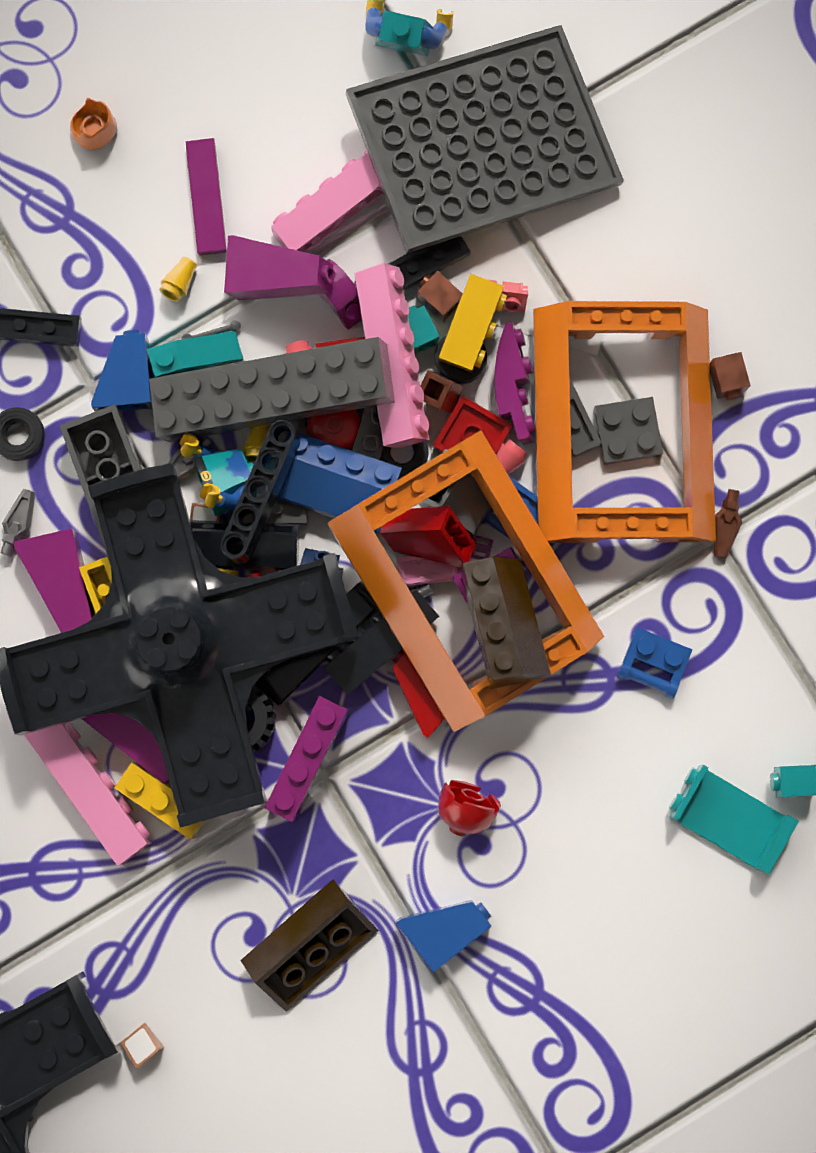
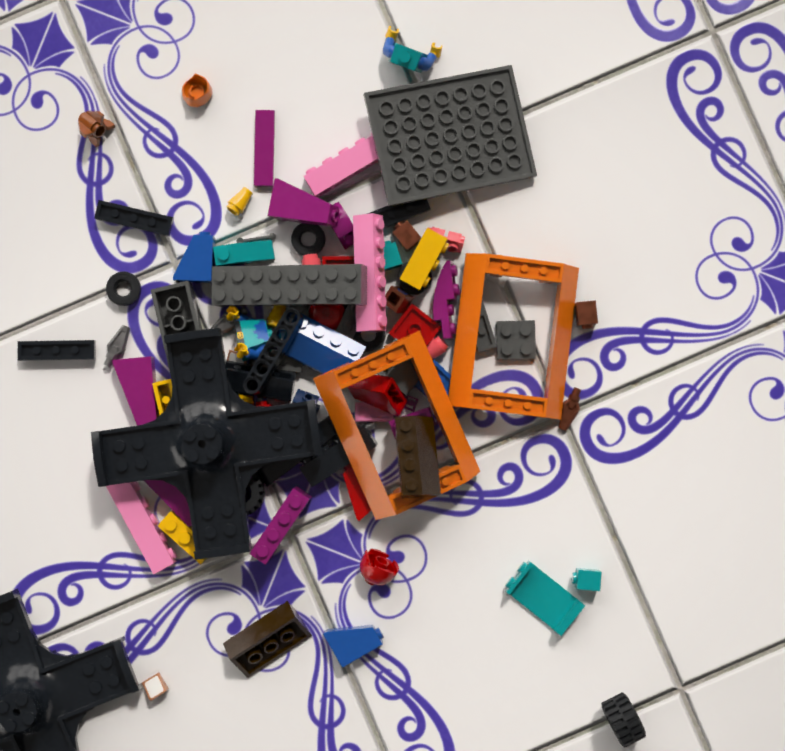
camera: 15 degrees right, 5 degrees up
(286, 304) = (300, 230): none -> black tyre
(656, 653) = (512, 485): blue plate -> none

